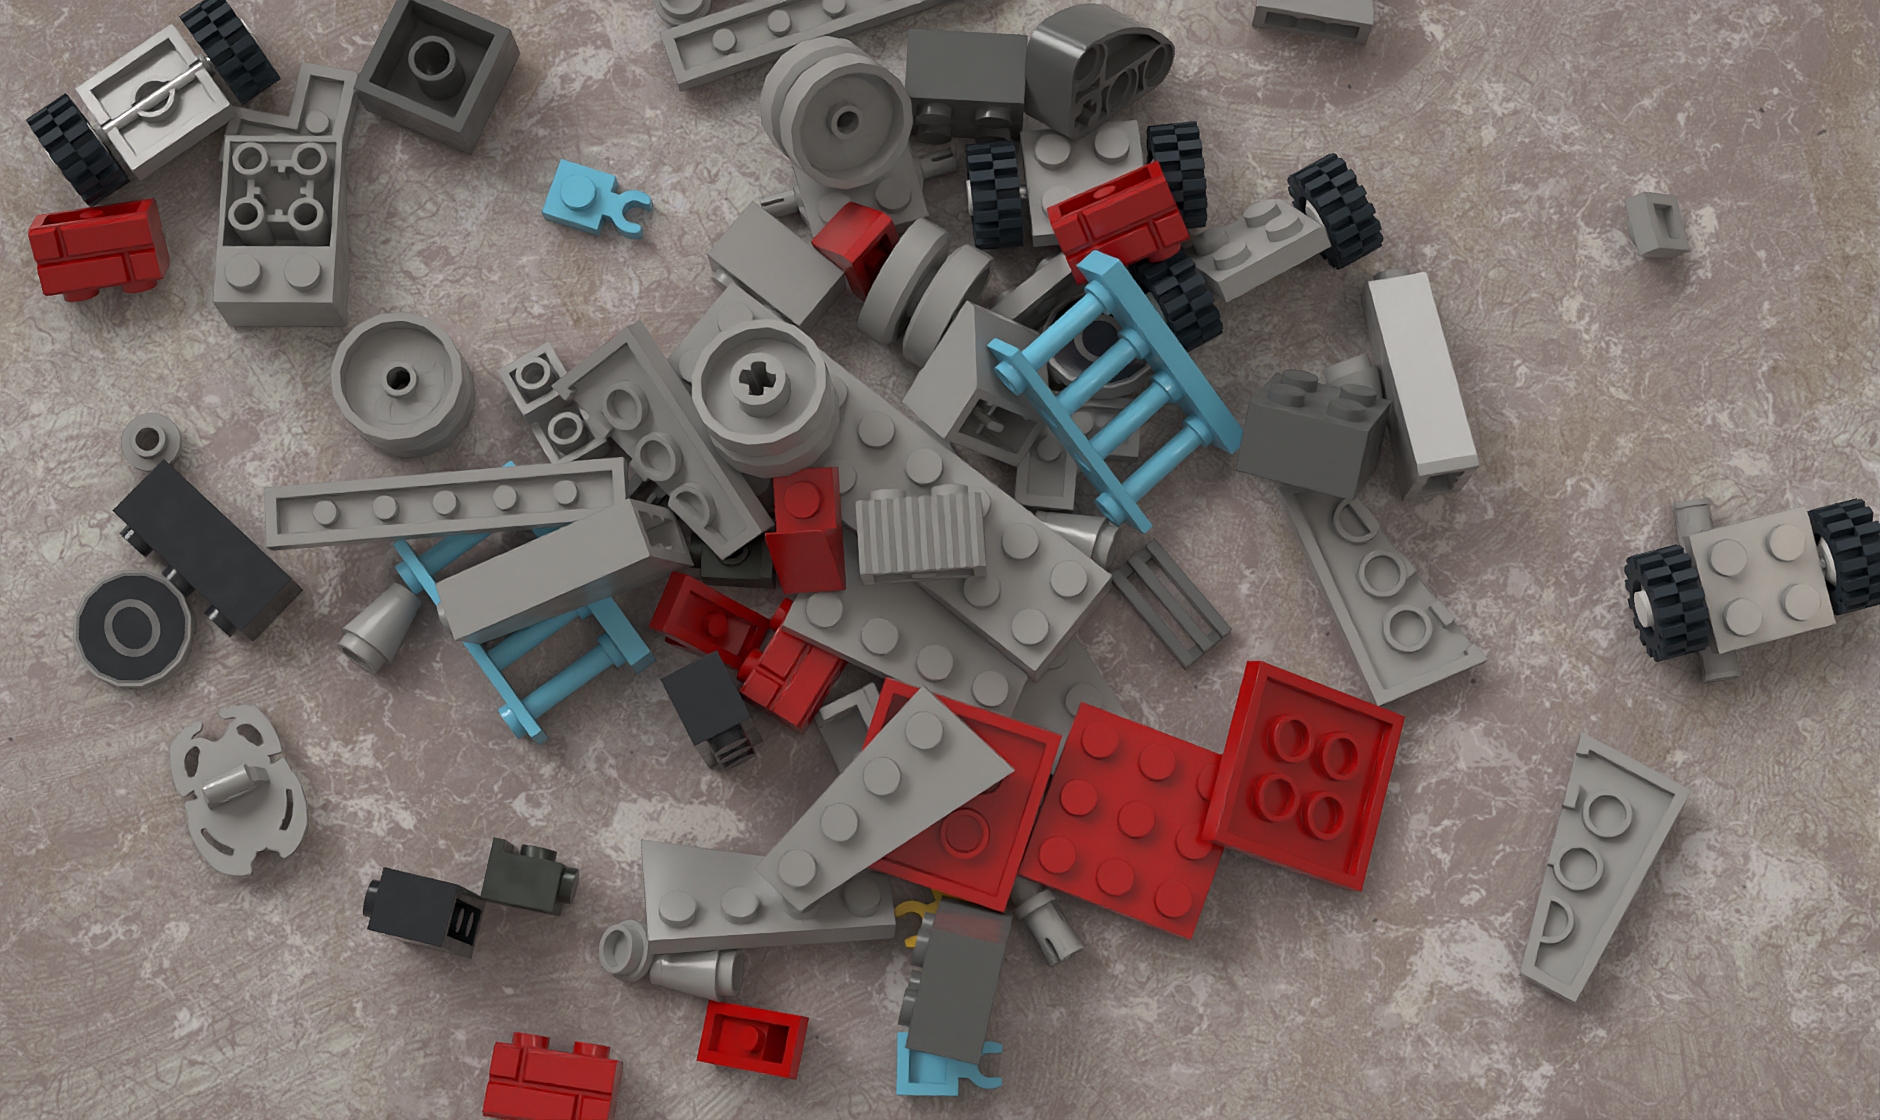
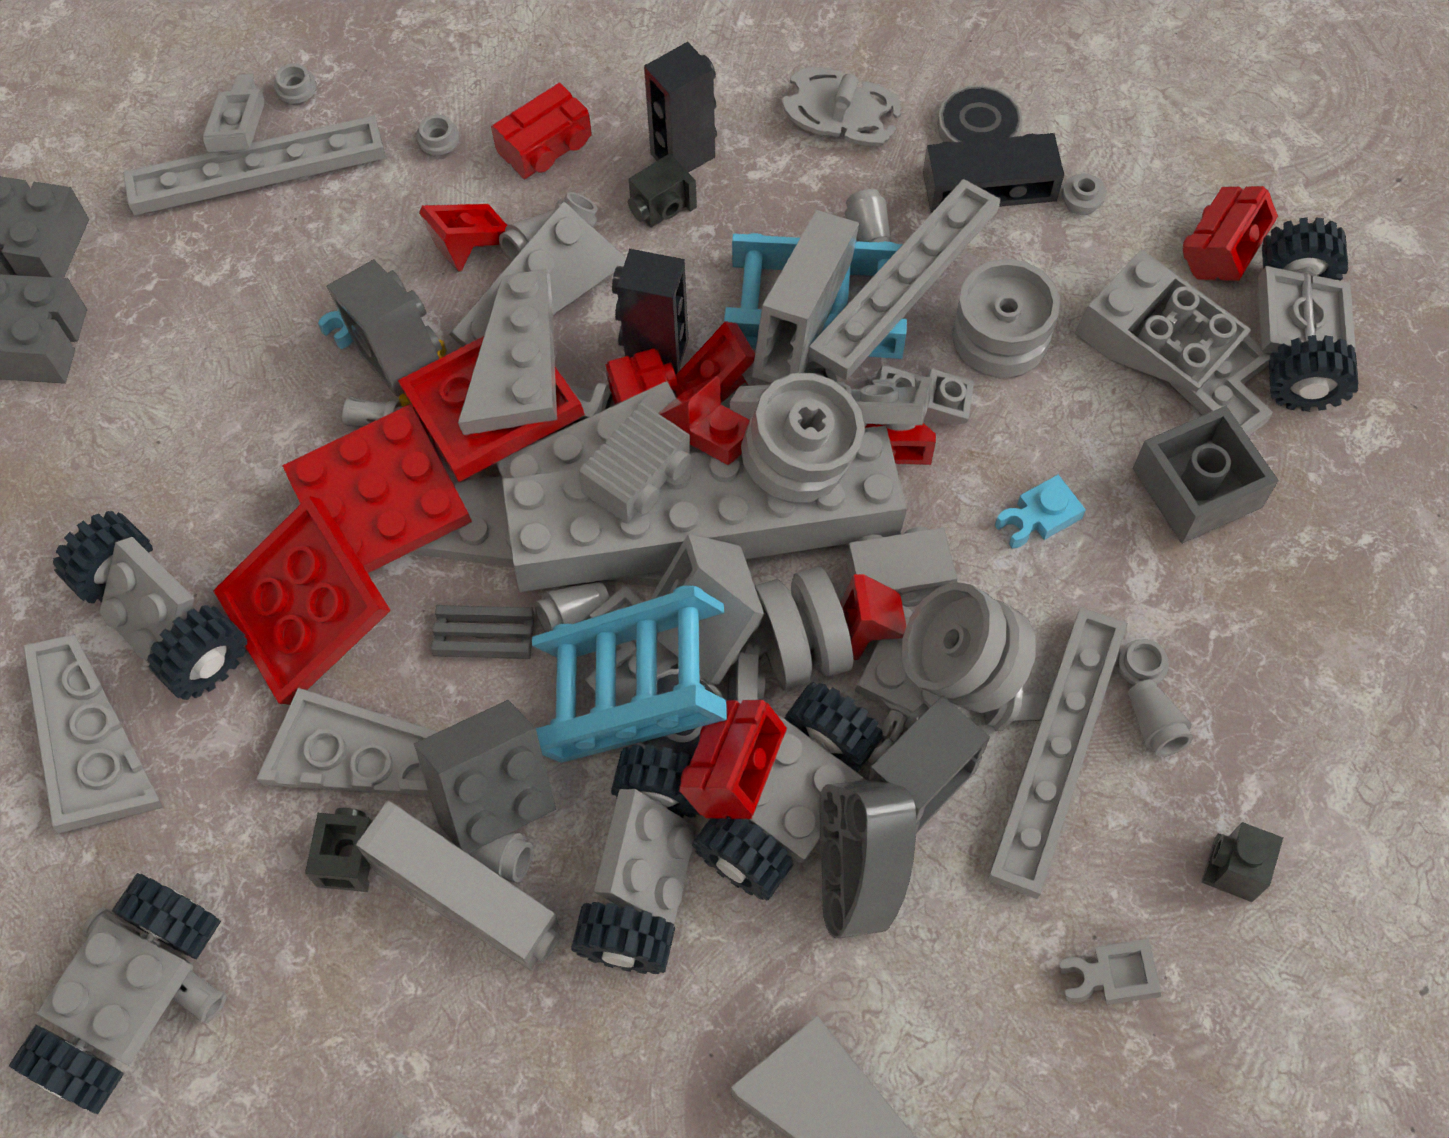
camera: 130 degrees right, 15 degrees down
(1436, 918) = (149, 606): none -> plate
(1486, 505) = (330, 835): none -> pearl dark grey brick

